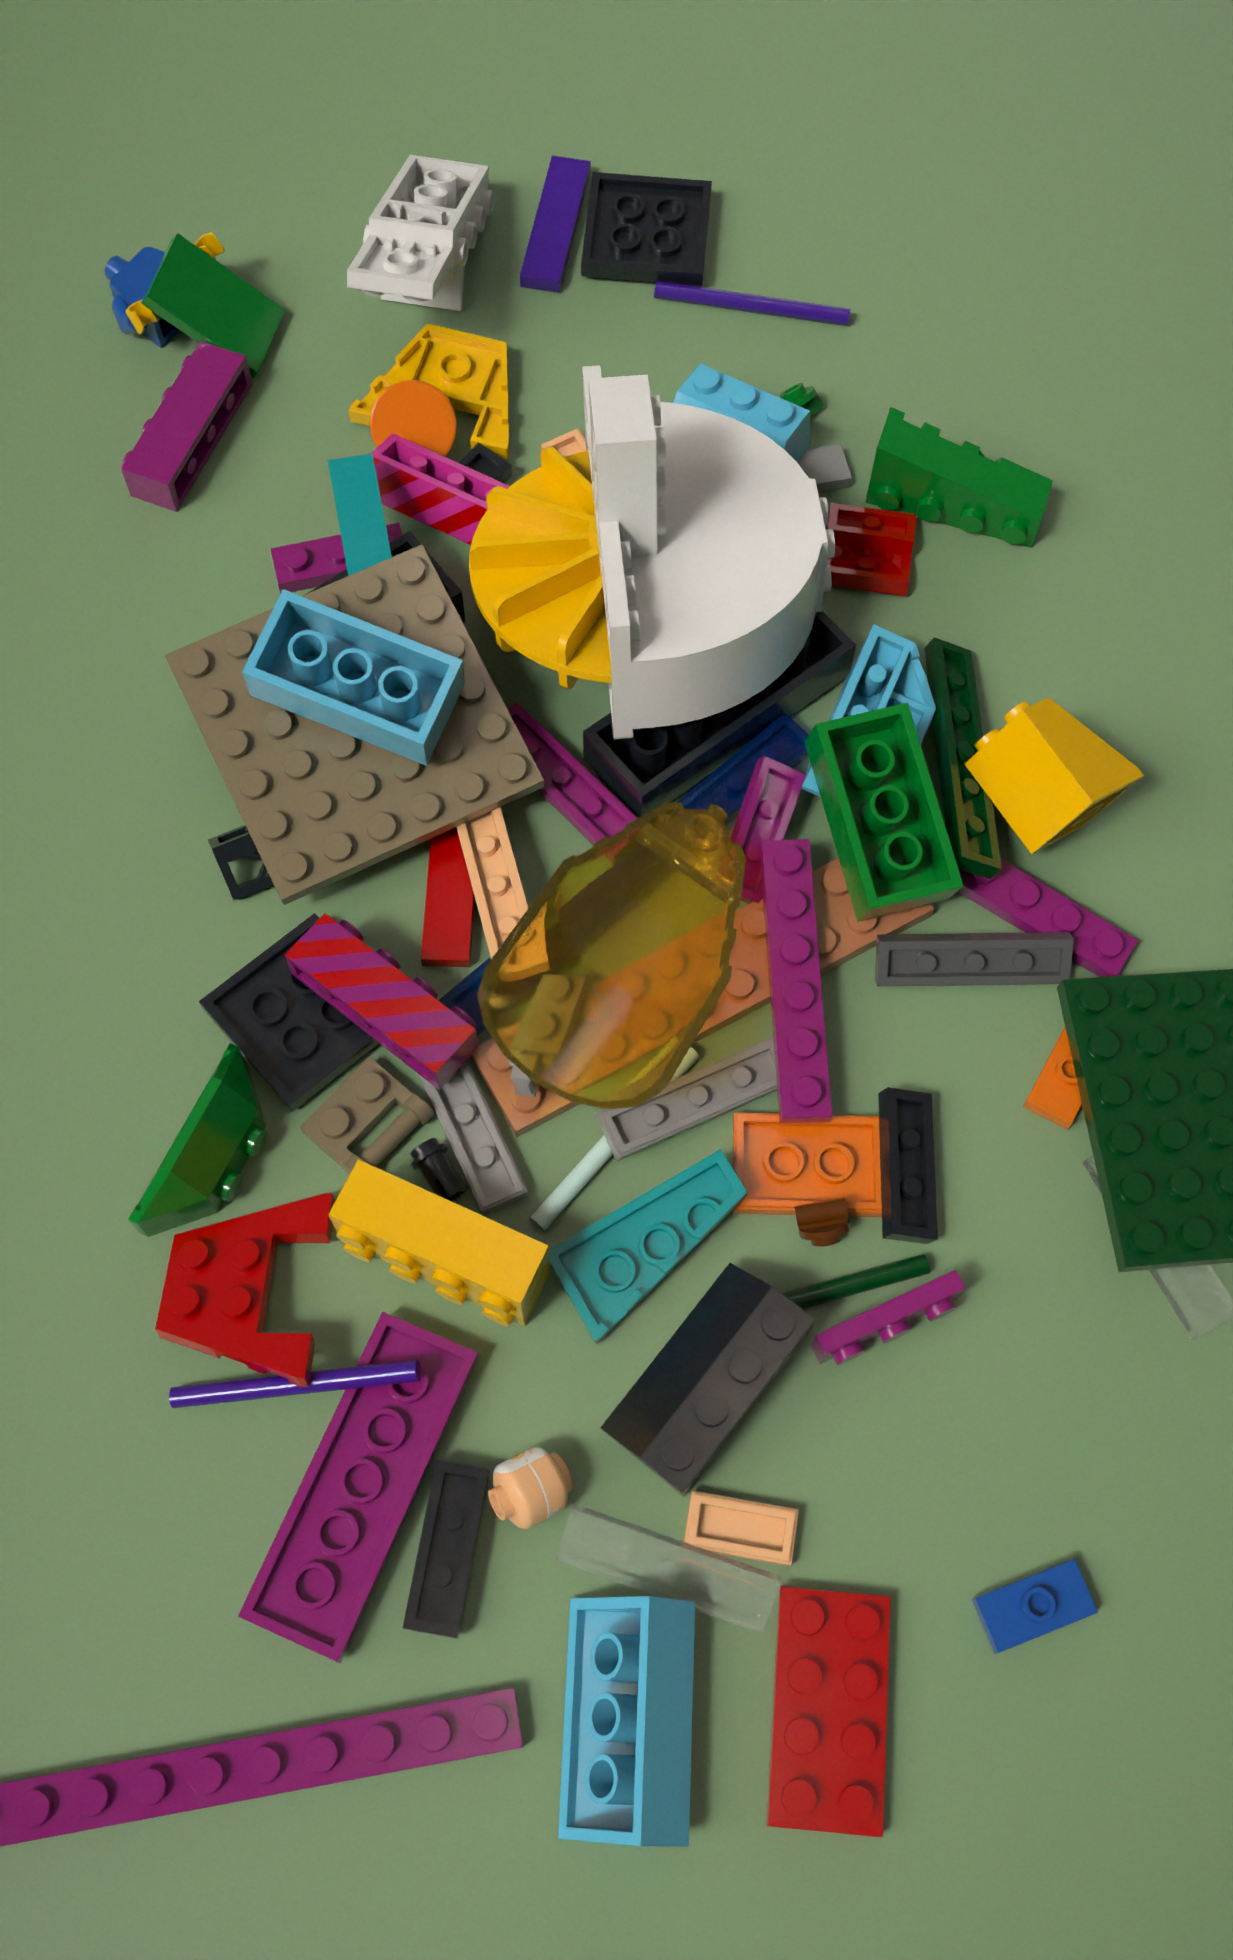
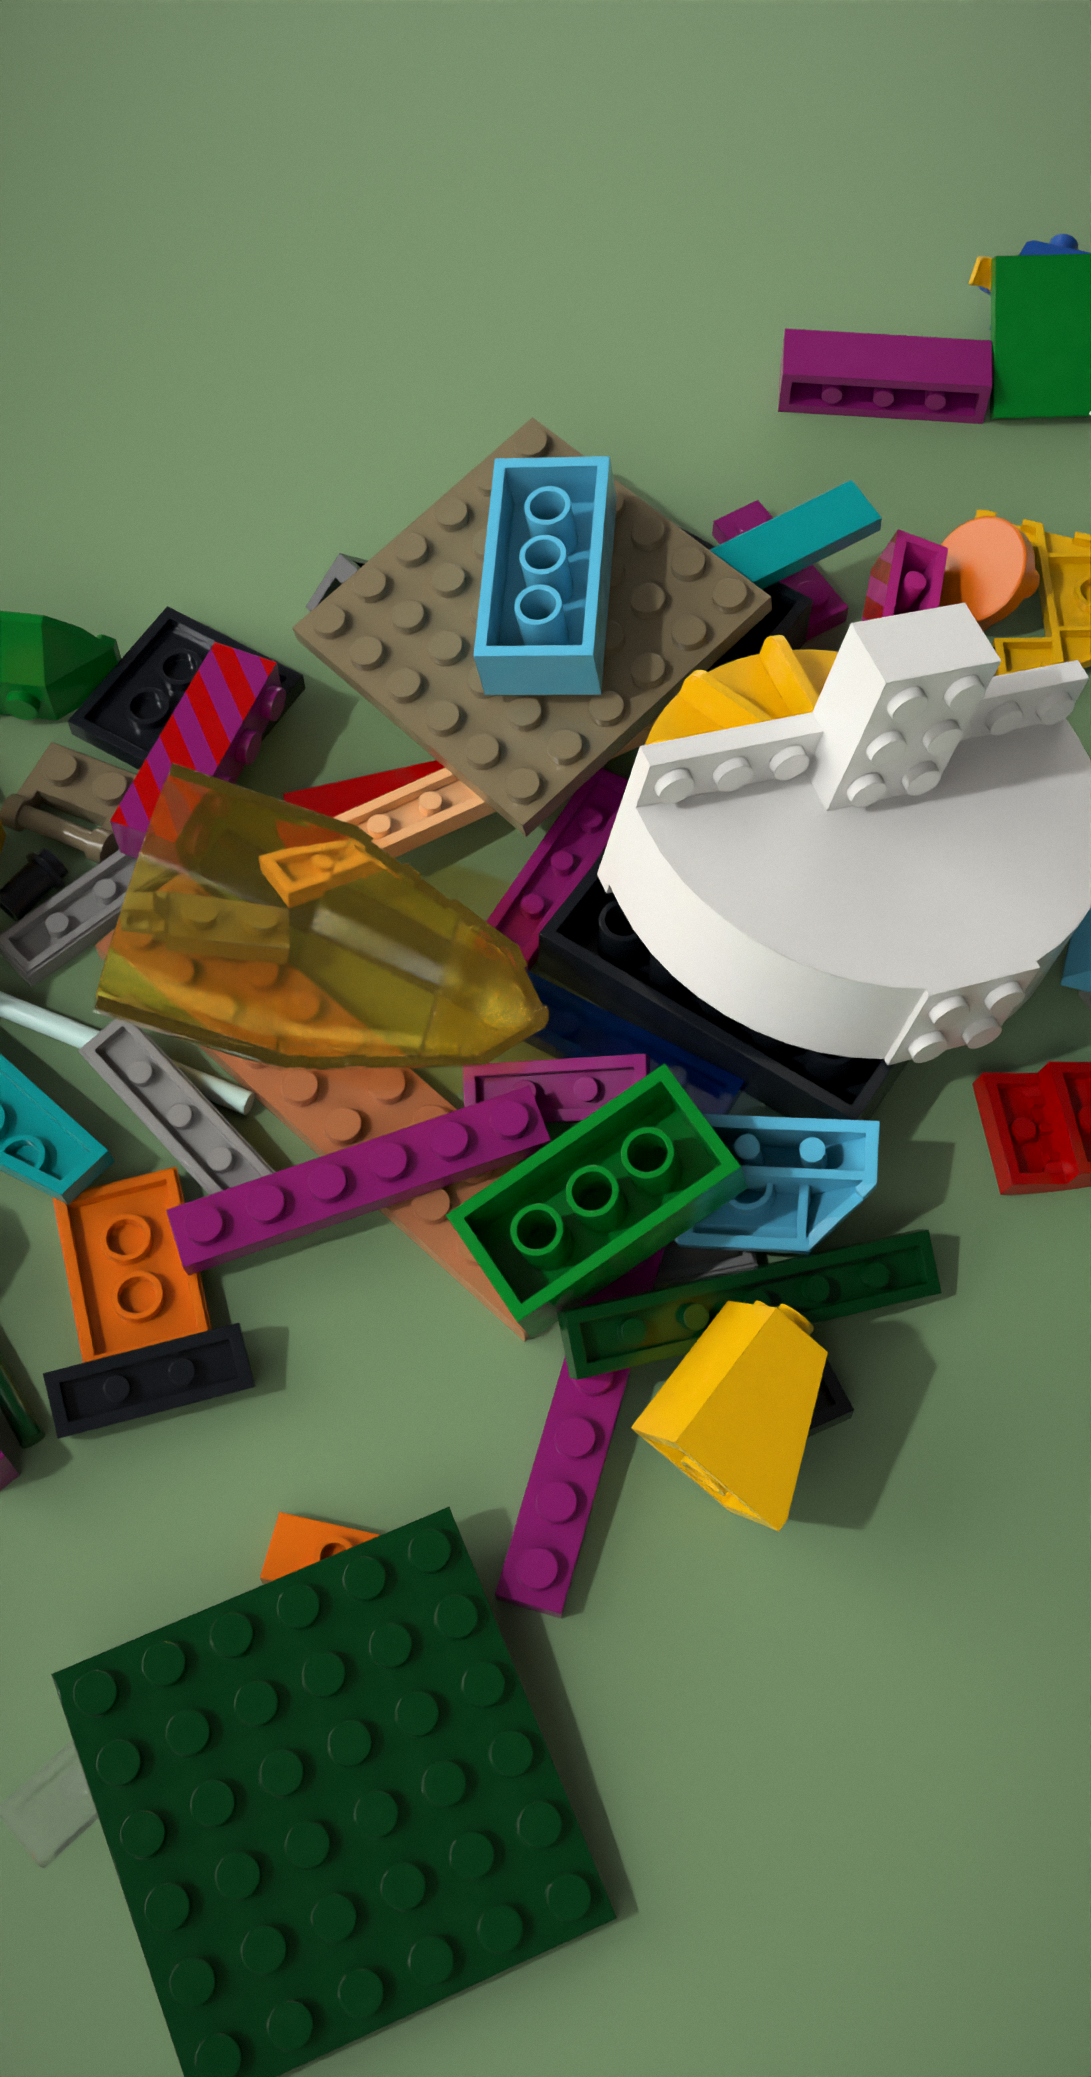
camera: 75 degrees right, 5 degrees down
(823, 1221) = (51, 1298): reddish brown plate -> none
(973, 959) = (463, 1400): dark grey plate -> none

